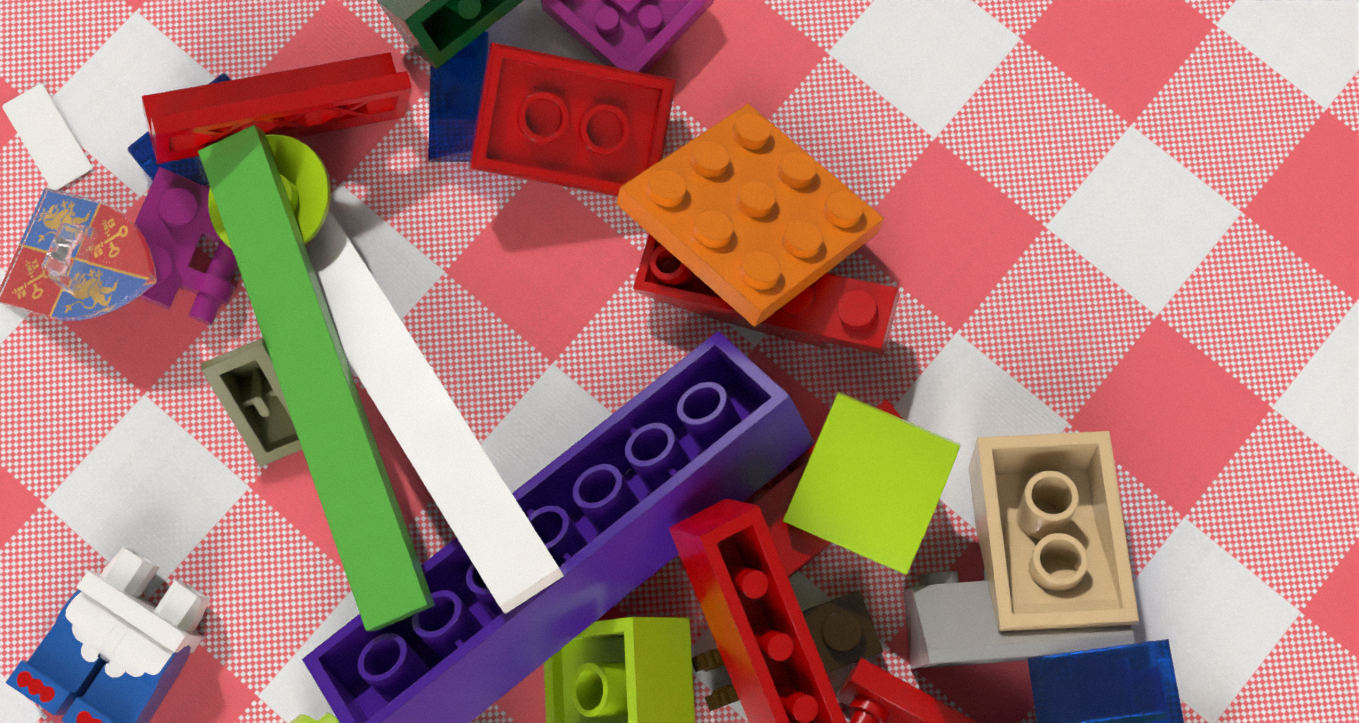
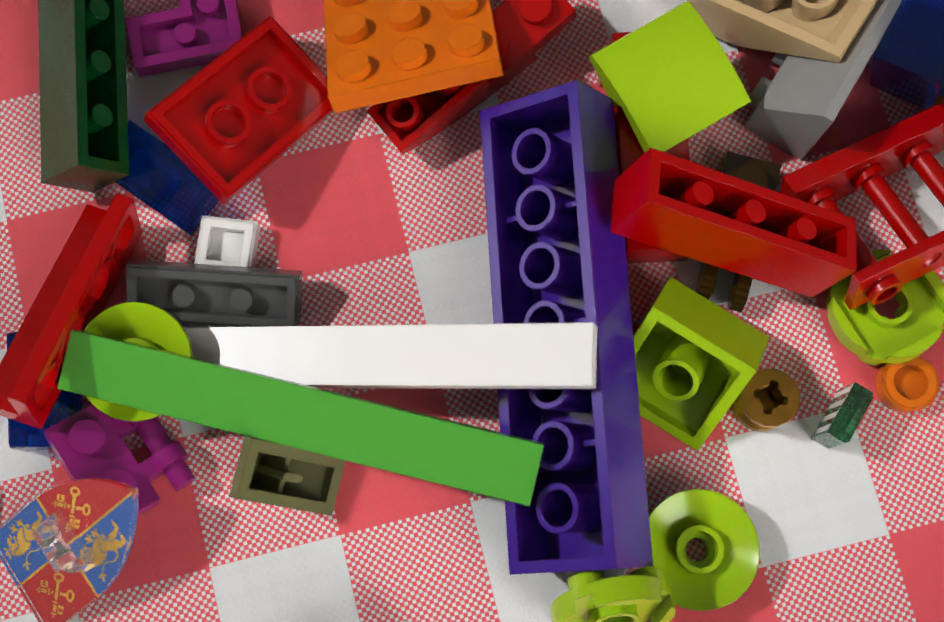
camera: 55 degrees left, 0 degrees up
(387, 222) = (218, 293): none -> dark grey tile
(439, 200) = (227, 242): none -> white tile

